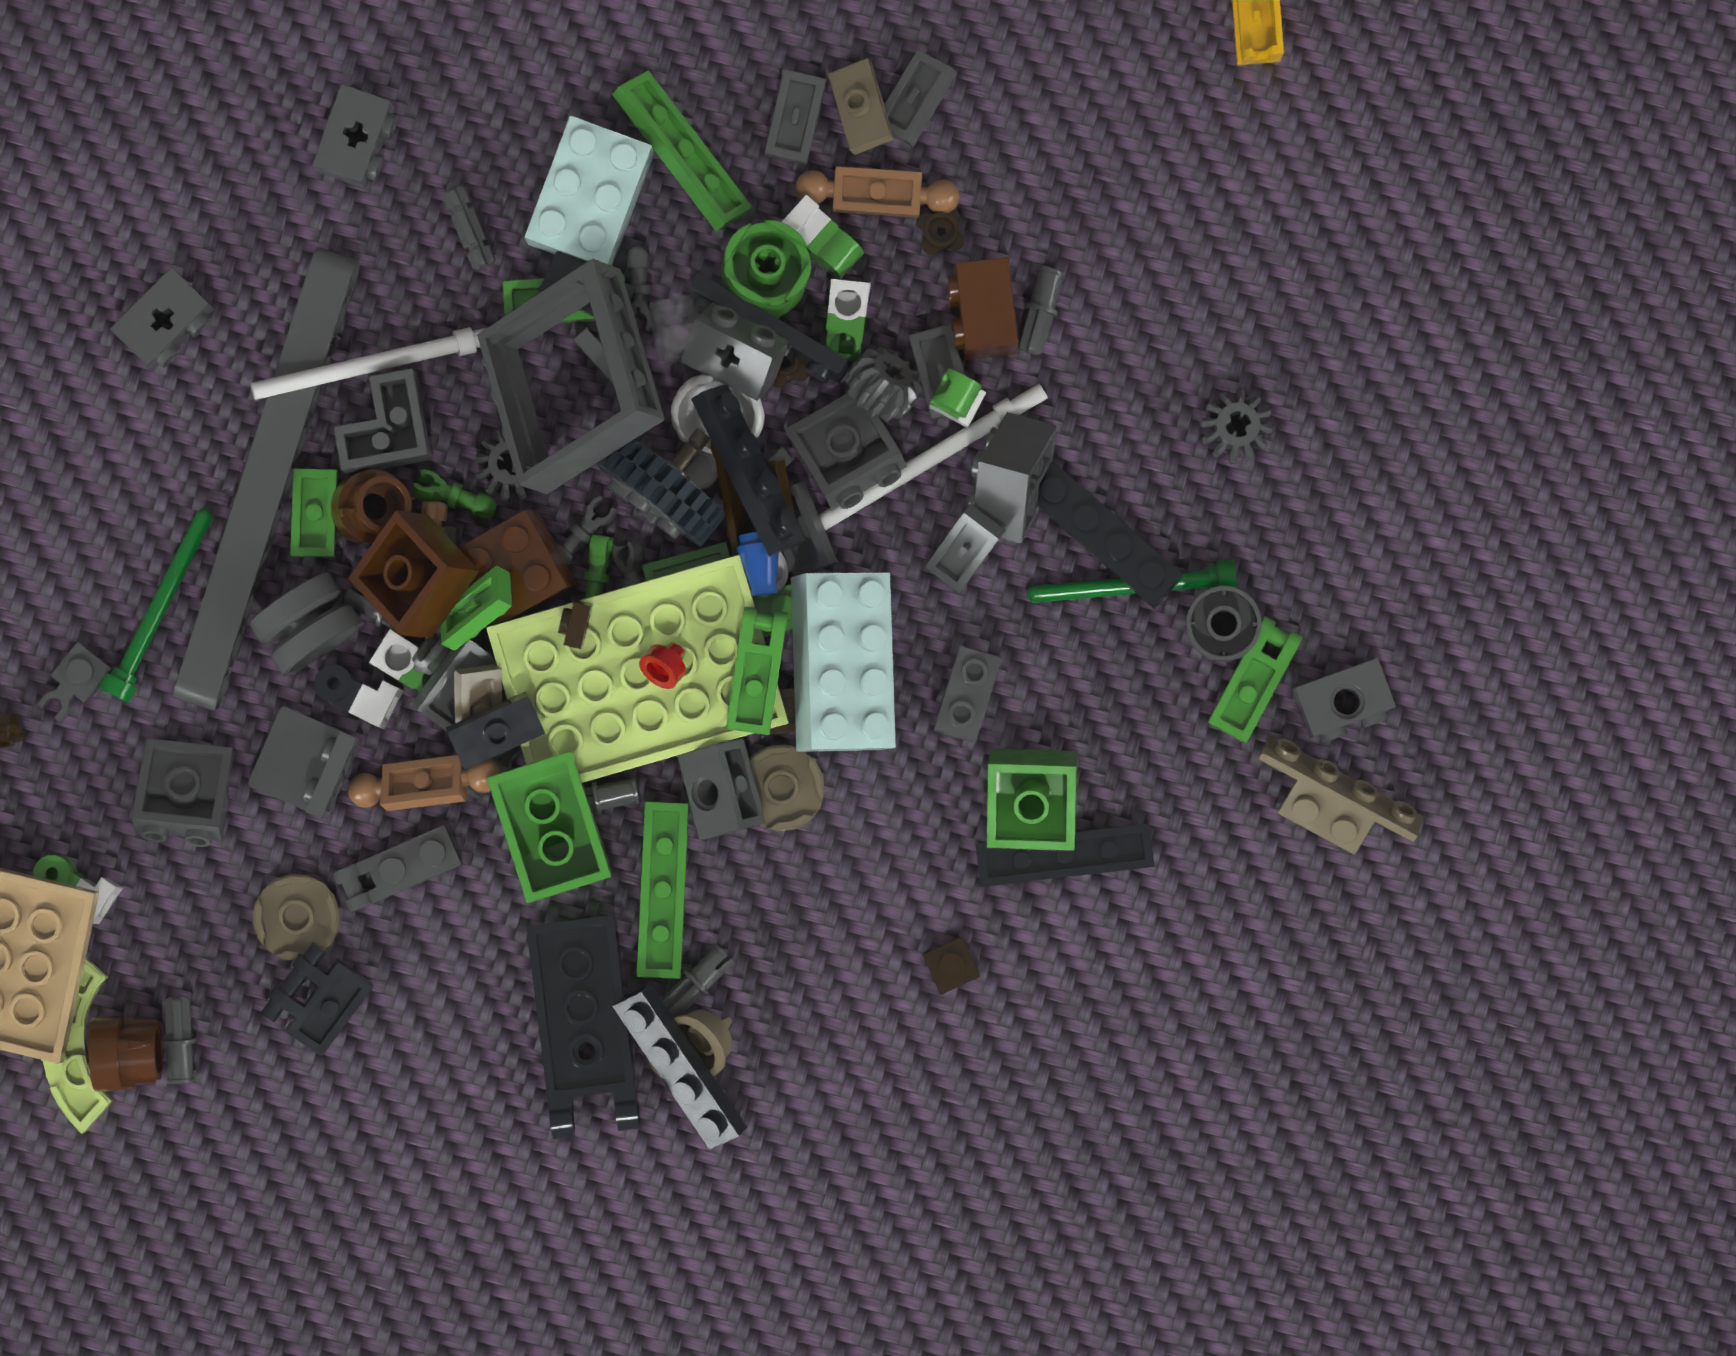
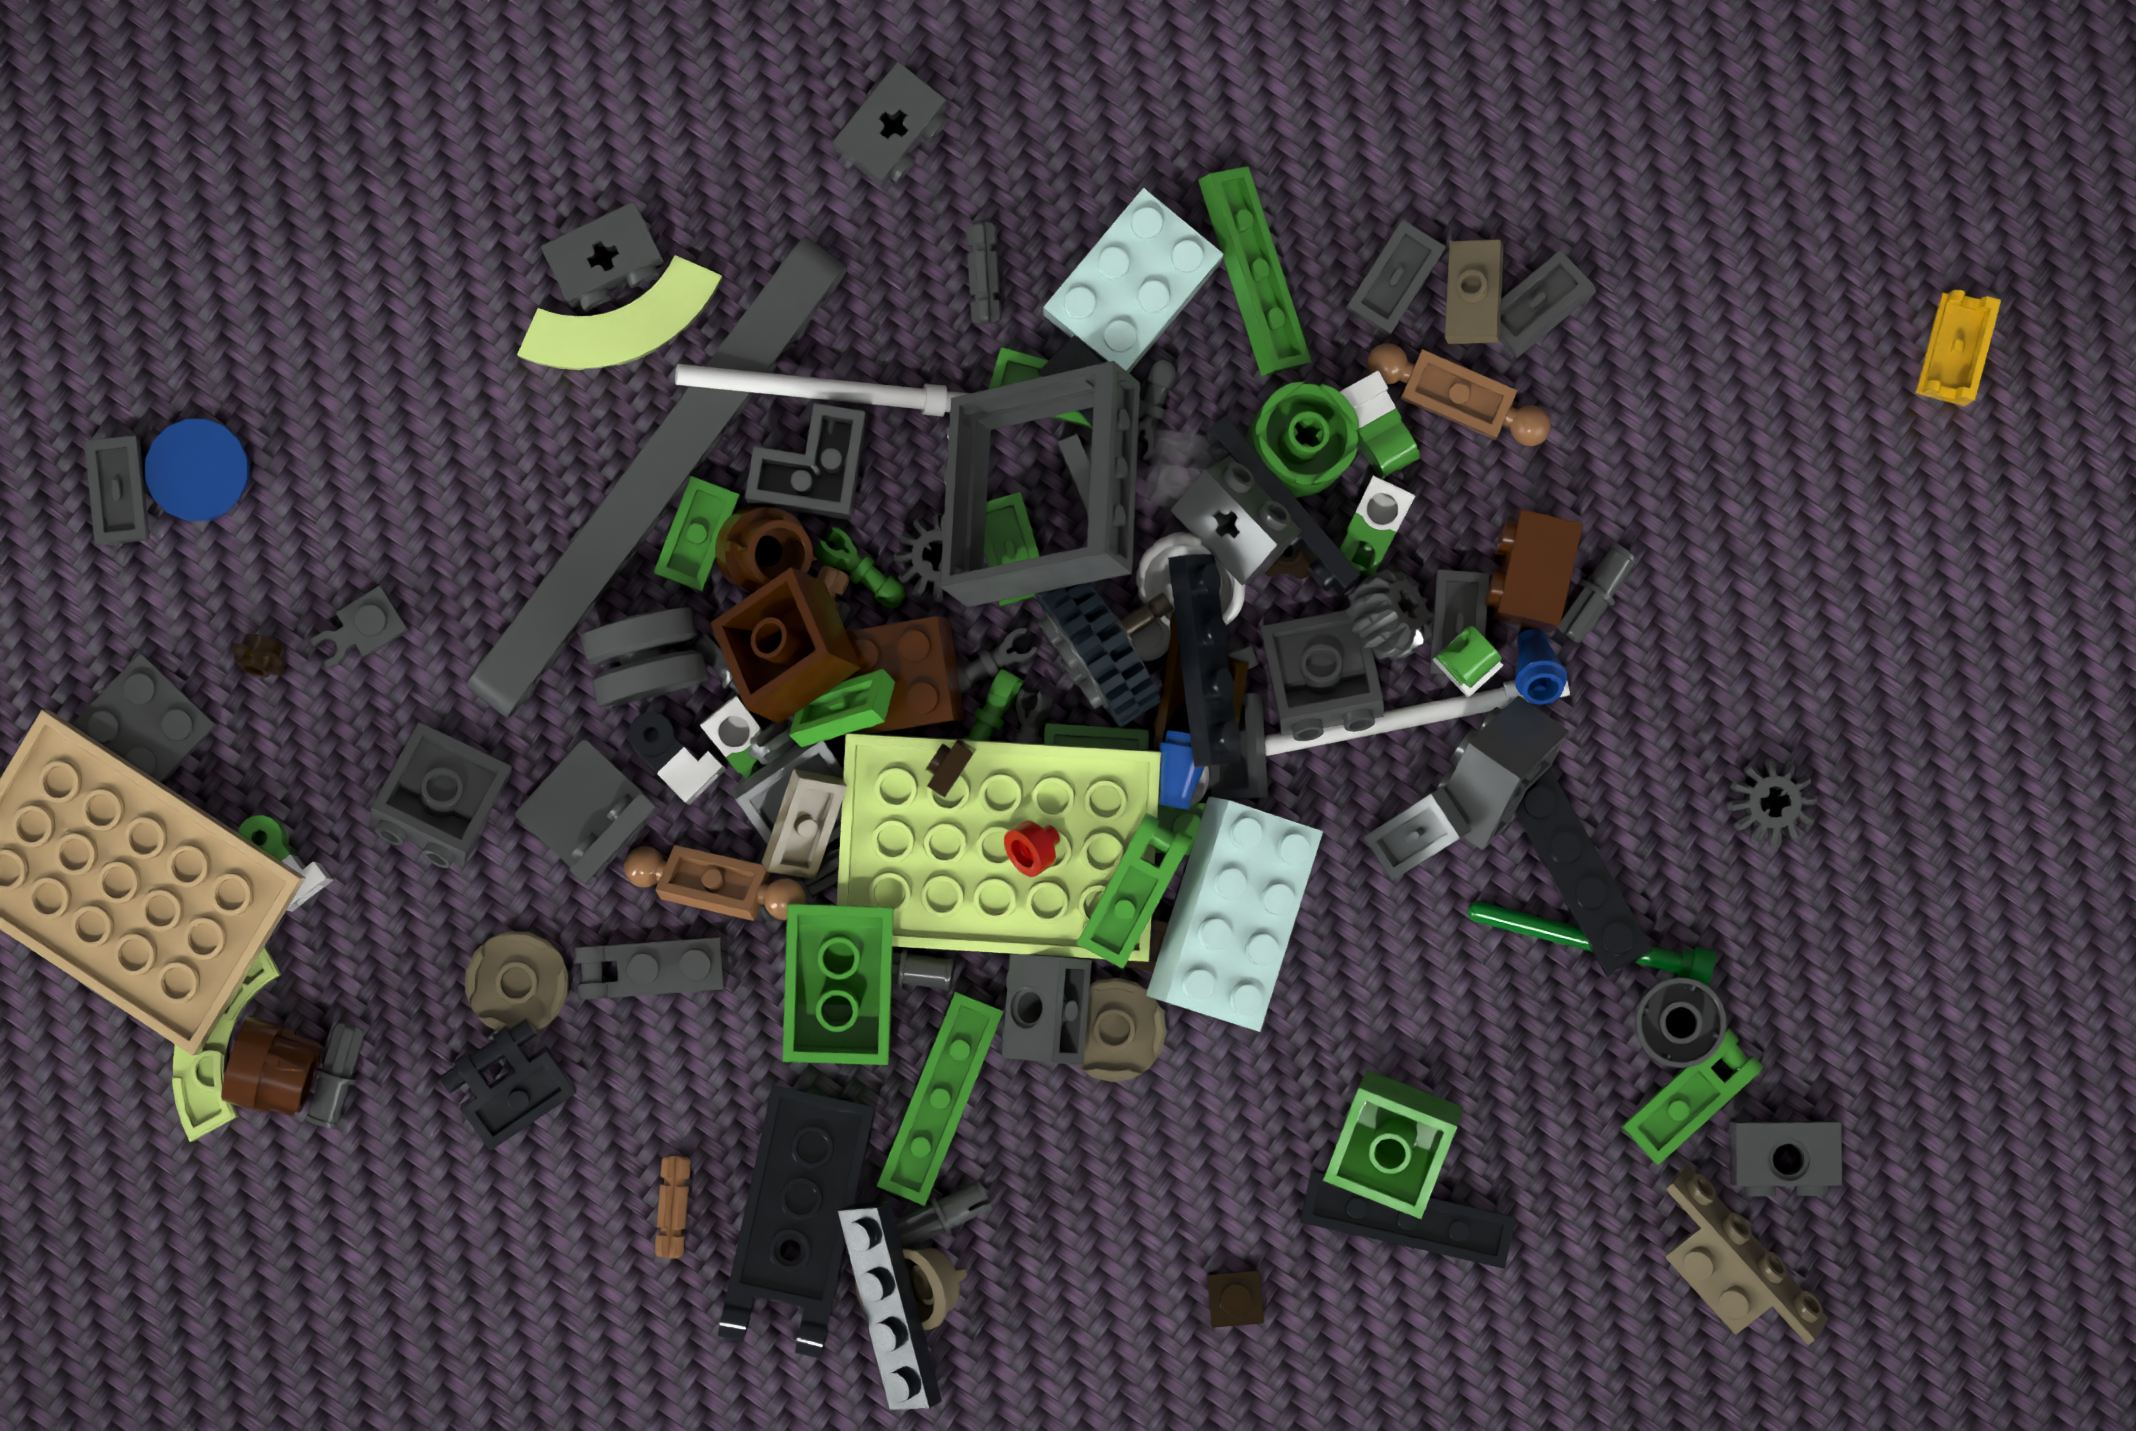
camera: 15 degrees right, 0 degrees up
(121, 679) = (414, 645): green piece -> none
(202, 373) = (625, 332): none -> yellowish green tile
(481, 1050) = (672, 1206): none -> medium nougat axle
(495, 730) = (815, 854): black plate -> none
(561, 427) = (1008, 536): none -> bright green plate
(934, 242) = (1503, 474): dark brown plate -> none
(967, 694) = (1362, 999): dark grey brick -> none
(1015, 385) = (1538, 670): none -> blue cone

